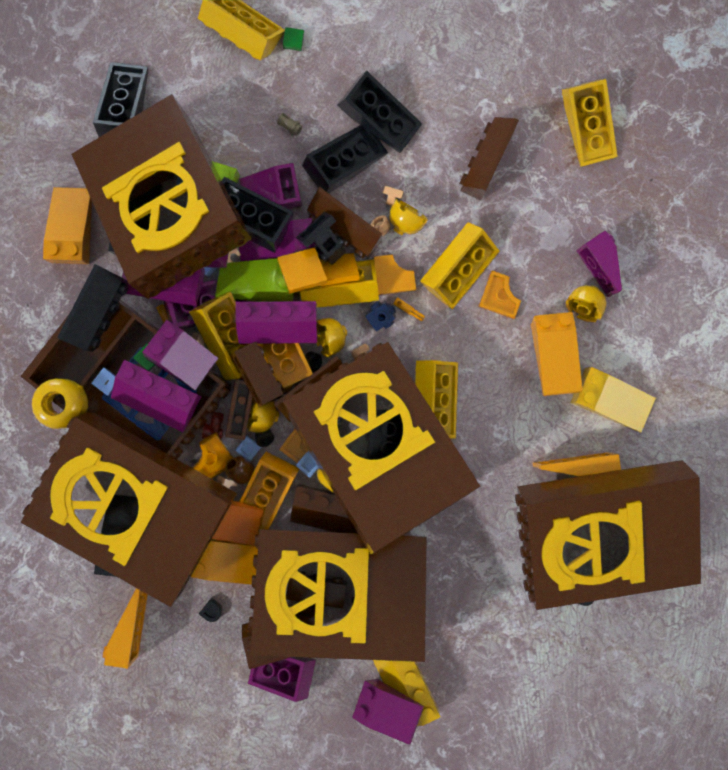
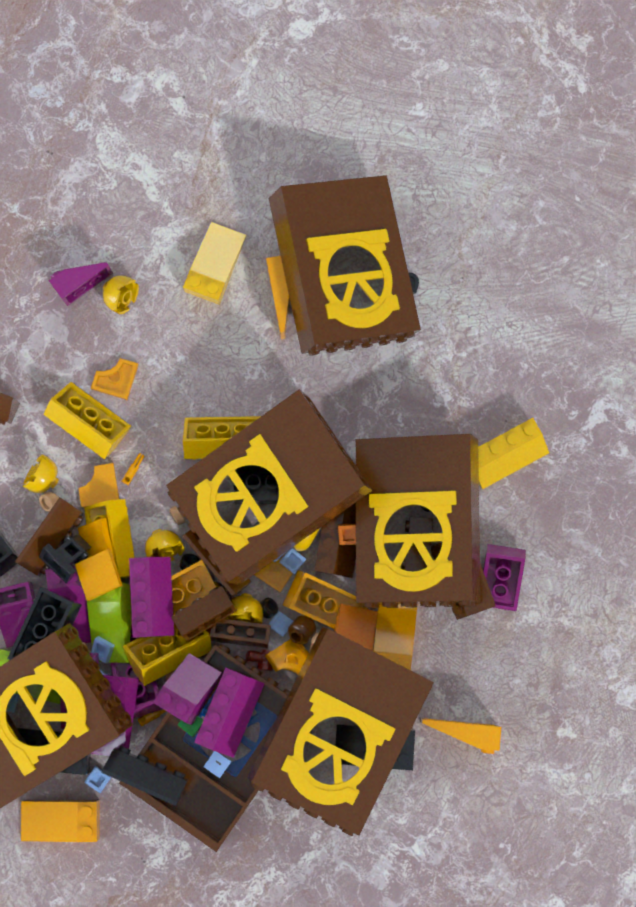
camera: 90 degrees left, 5 degrees down
(75, 400) = (224, 807): yellow piece -> none
(108, 262) = (97, 779): none -> light blue tile
(211, 611) = (446, 651): black tile -> none
(230, 273) = (104, 649): none -> light blue tile
(330, 522) = (347, 534): none -> orange tile
(378, 321) = (146, 498): dark blue brick -> none
(387, 711) = (530, 469): magenta slope -> none
(392, 194) = (17, 490): light nougat tile -> none
(557, 353) = (171, 320): light orange slope -> none

